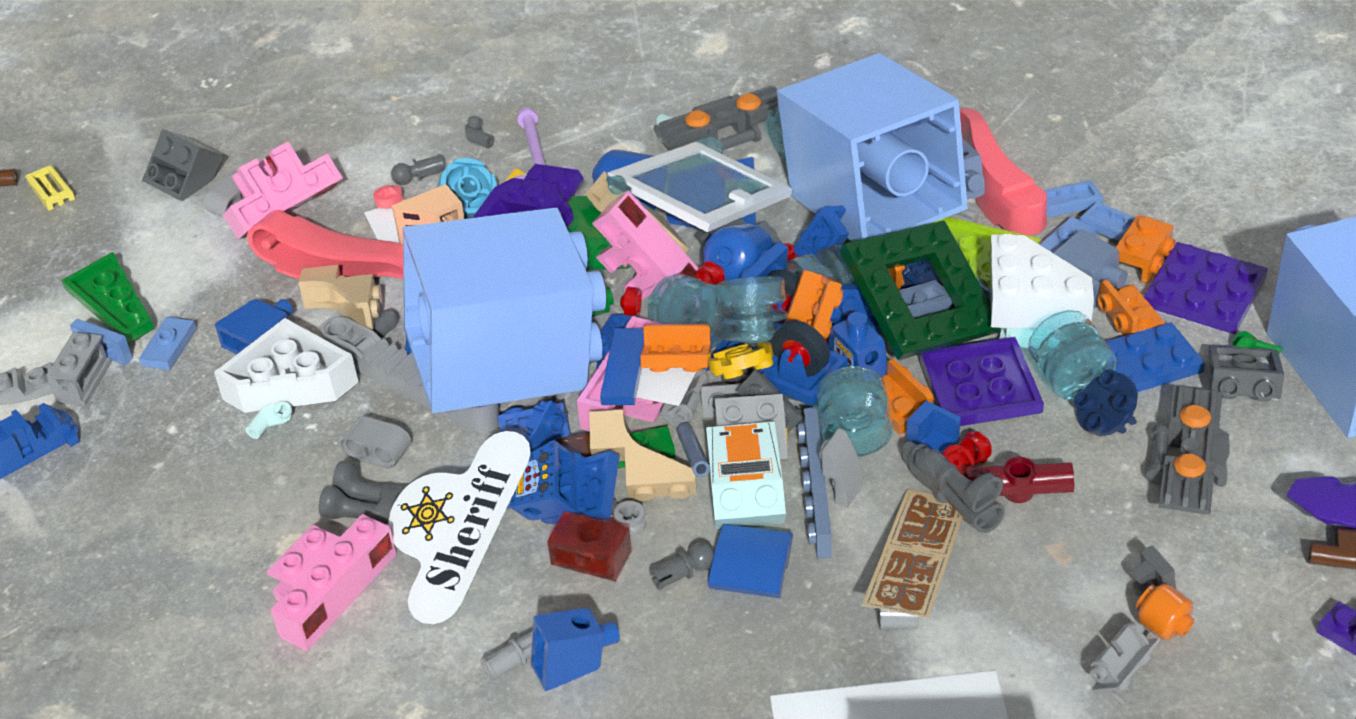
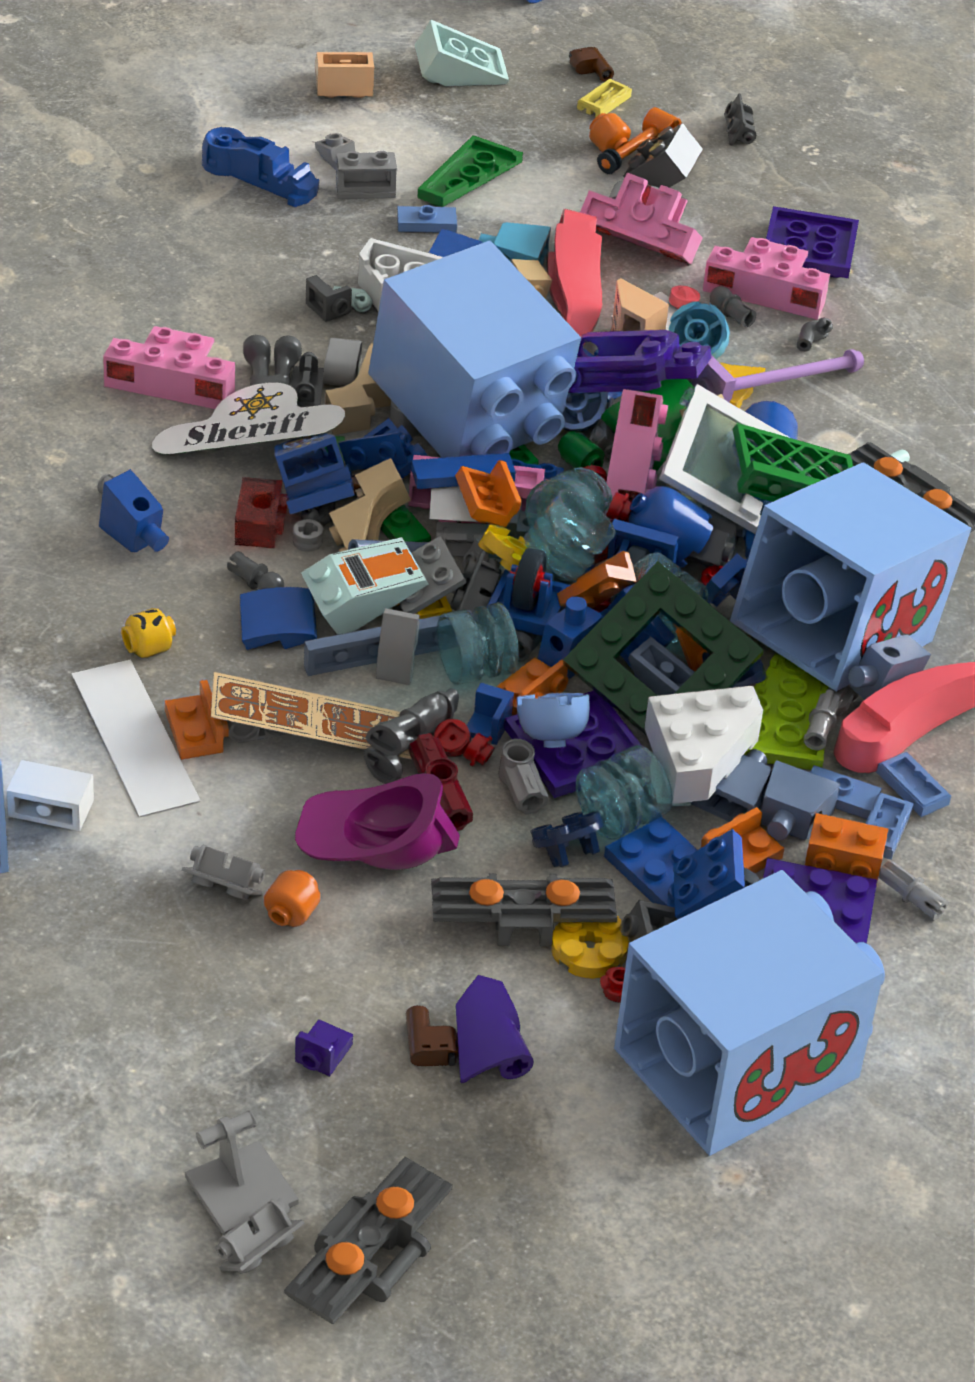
camera: 65 degrees right, 0 degrees up
(113, 343) = (407, 179): medium blue plate -> none
(119, 190) = (609, 132): none -> orange head
(130, 156) = (653, 123): none -> orange piece
(149, 110) = (739, 121): none -> dark grey hinge
(264, 279) = (521, 241): none -> medium azure torso
(266, 438) = (326, 301): none -> dark grey bracket
(351, 106) = (825, 237): none -> dark purple plate
(381, 472) = (308, 380): none -> dark grey hinge
(396, 136) = (769, 277): none -> bright pink piece
(450, 444) = (358, 400): none -> tan arch
(708, 159) = (766, 479): none -> green fence
(749, 667) = (148, 633): none -> yellow head
(891, 648) = (192, 724): none -> orange bracket
(978, 371) = (553, 716): none -> light blue cylinder
(998, 222) = (822, 720): none -> light grey axle
(1011, 423) = (521, 776): none -> light grey piece
(1083, 525) = (379, 825): none -> magenta piece
(1152, 571) = (345, 889): dark grey tile -> none
(1191, 224) = (913, 889): none -> light grey axle
(1201, 317) = (710, 874): none -> blue plate
(1247, 422) = (586, 962): none -> yellow plate
(1280, 416) = (613, 983): none -> red plate

